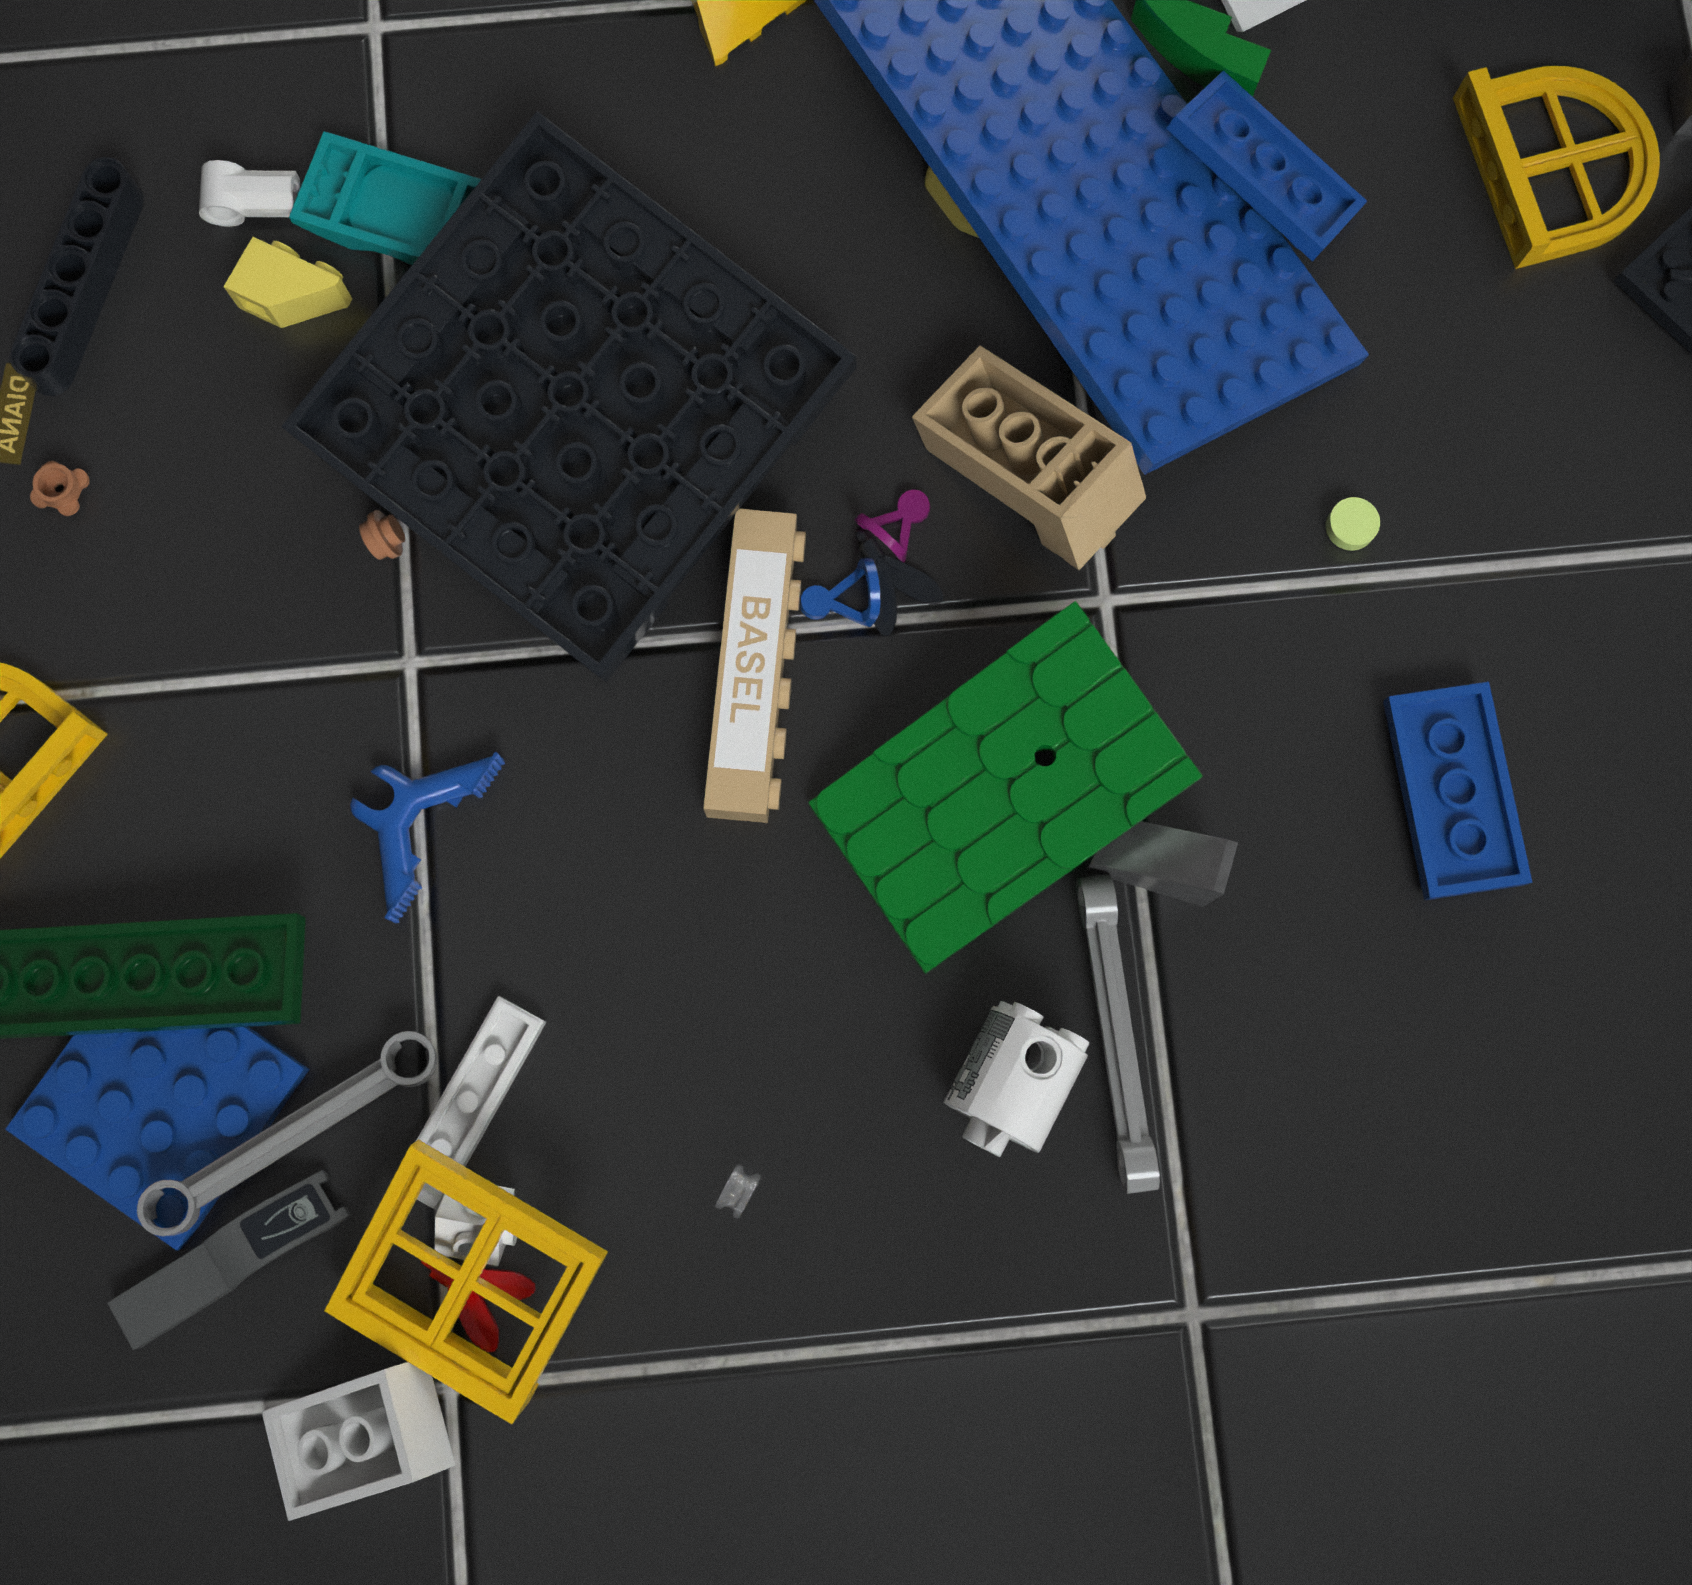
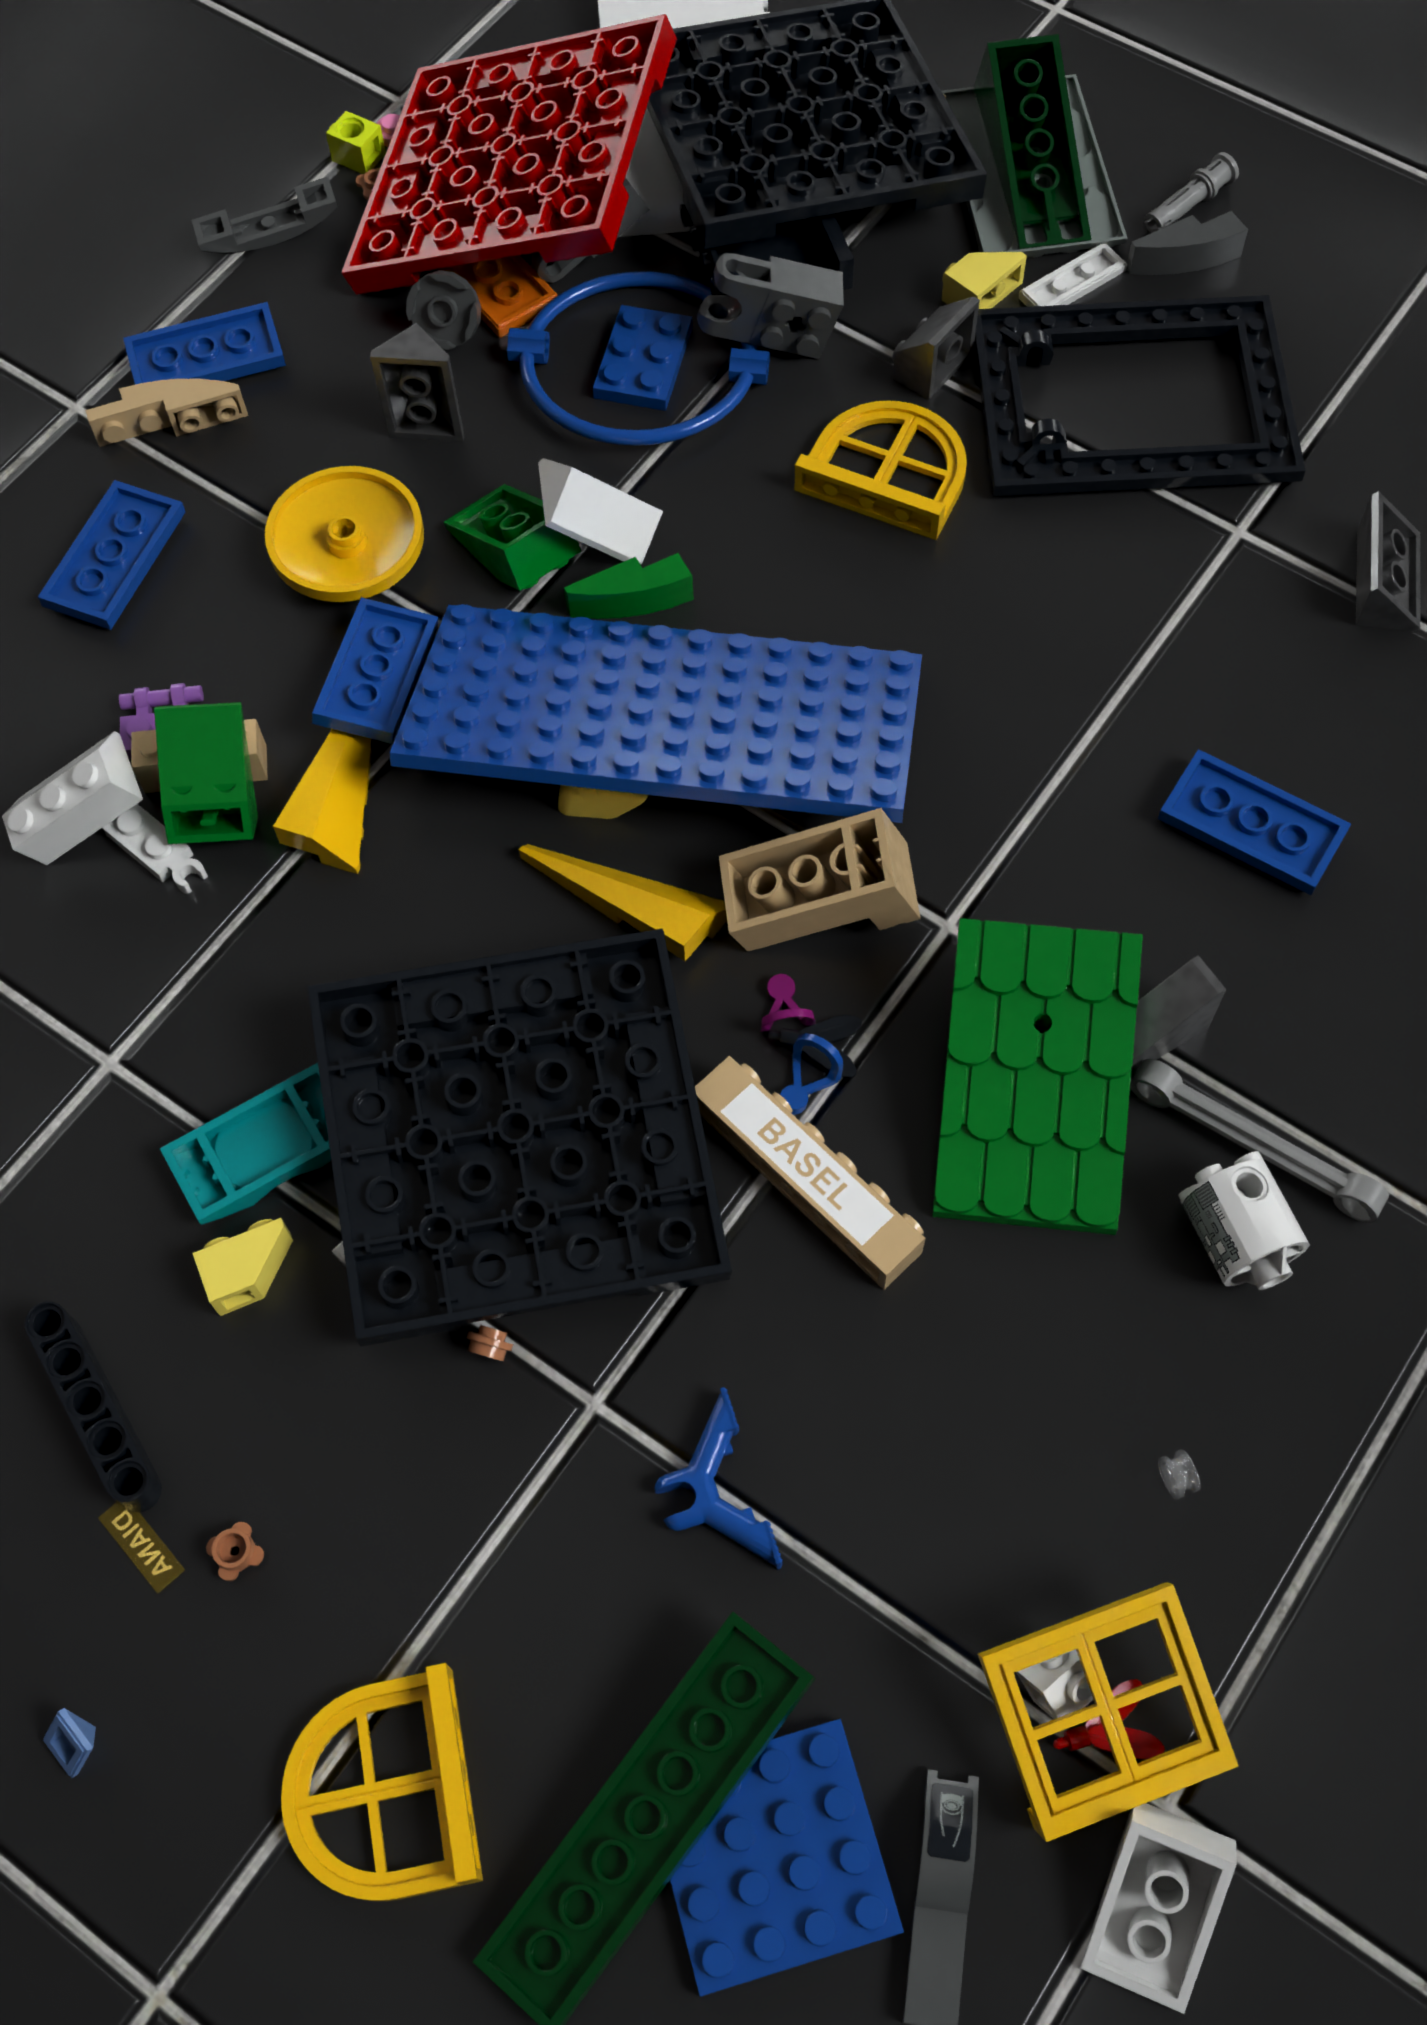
camera: 45 degrees left, 15 degrees down
(234, 193) = (140, 1248): white piece -> none
(285, 1135) = (885, 1767): light grey piece -> none
(479, 1086) = (955, 1607): white tile -> none
(896, 341) = (637, 900): none -> yellow wedge
(1266, 165) = (749, 612): blue plate -> none
(1352, 523) = (1024, 747): yellowish green tile -> none

